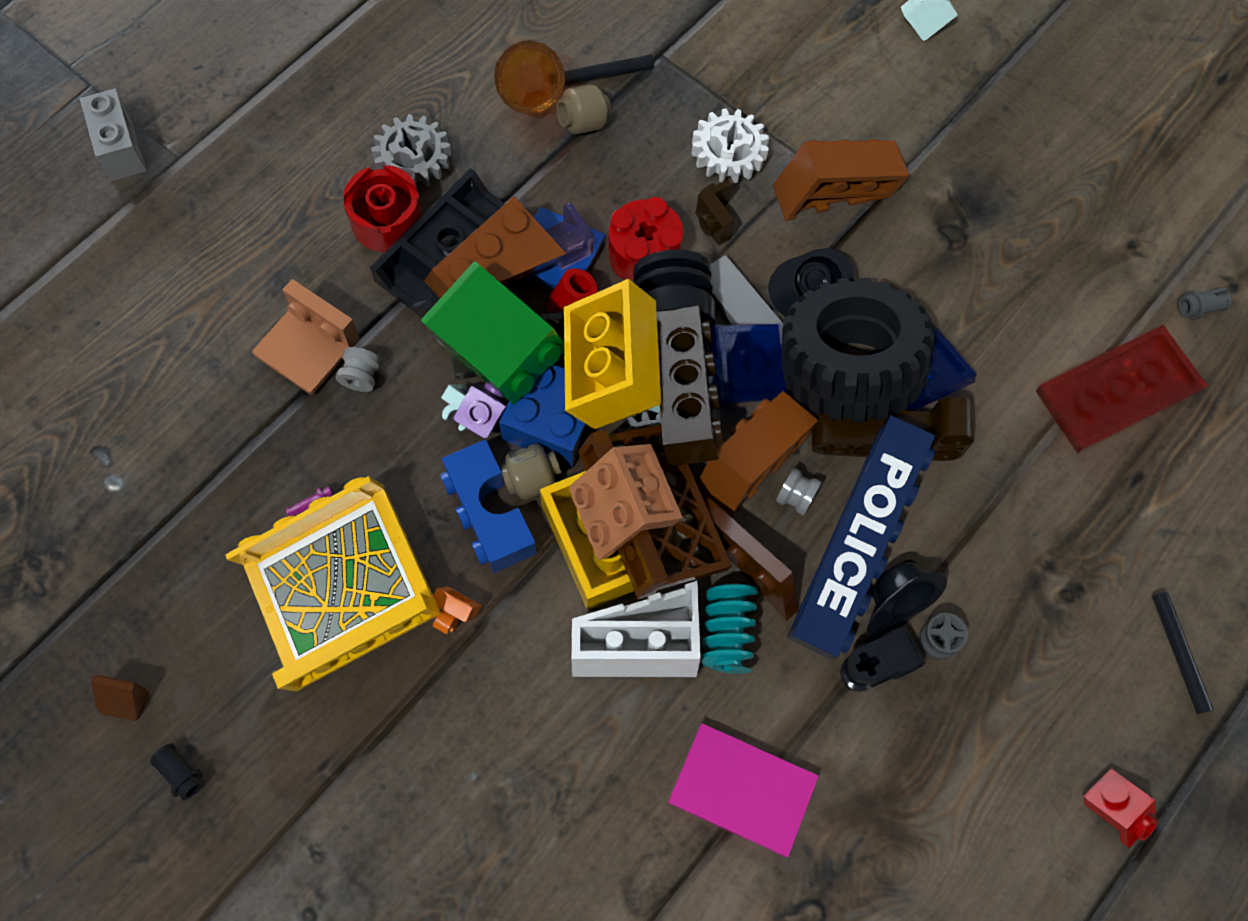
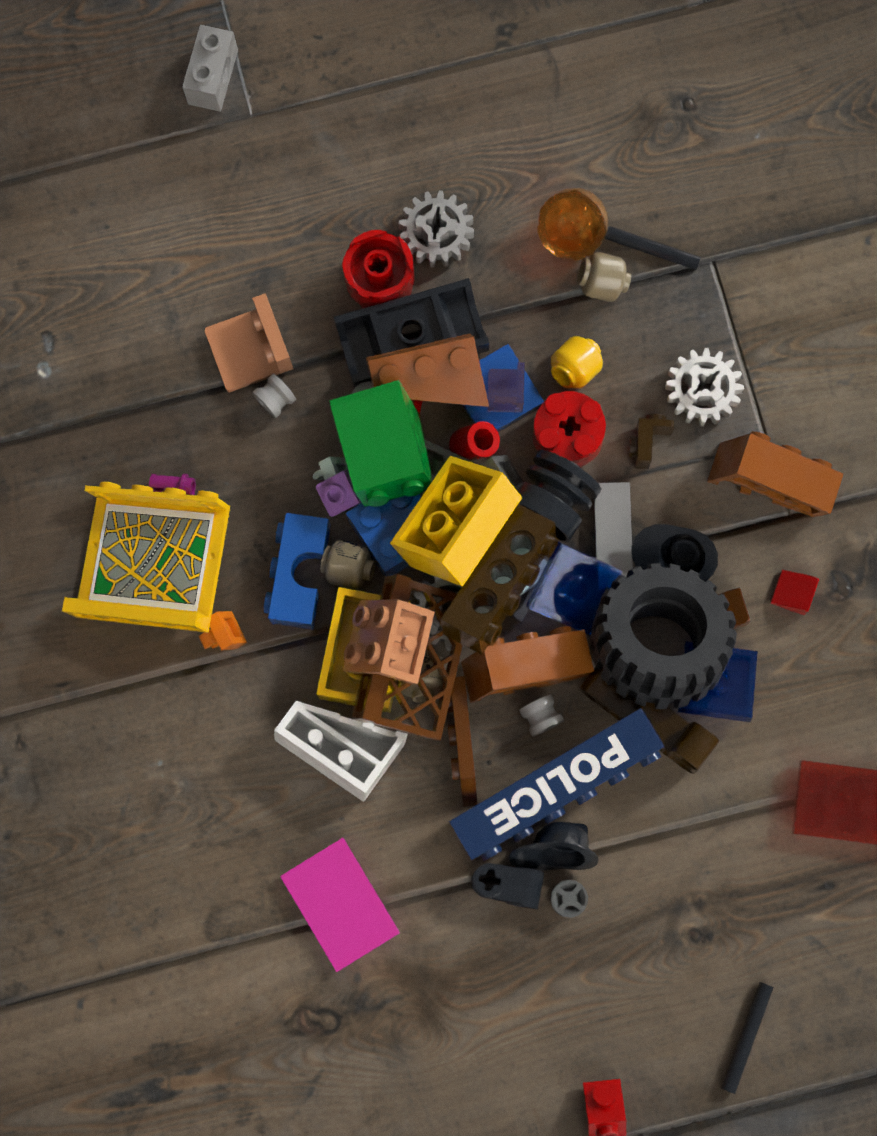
camera: 45 degrees right, 10 degrees up
(610, 185) = (576, 362): none -> yellow head
(727, 628) = (411, 783): teal piece -> none
(925, 258) = (794, 591): none -> red slope

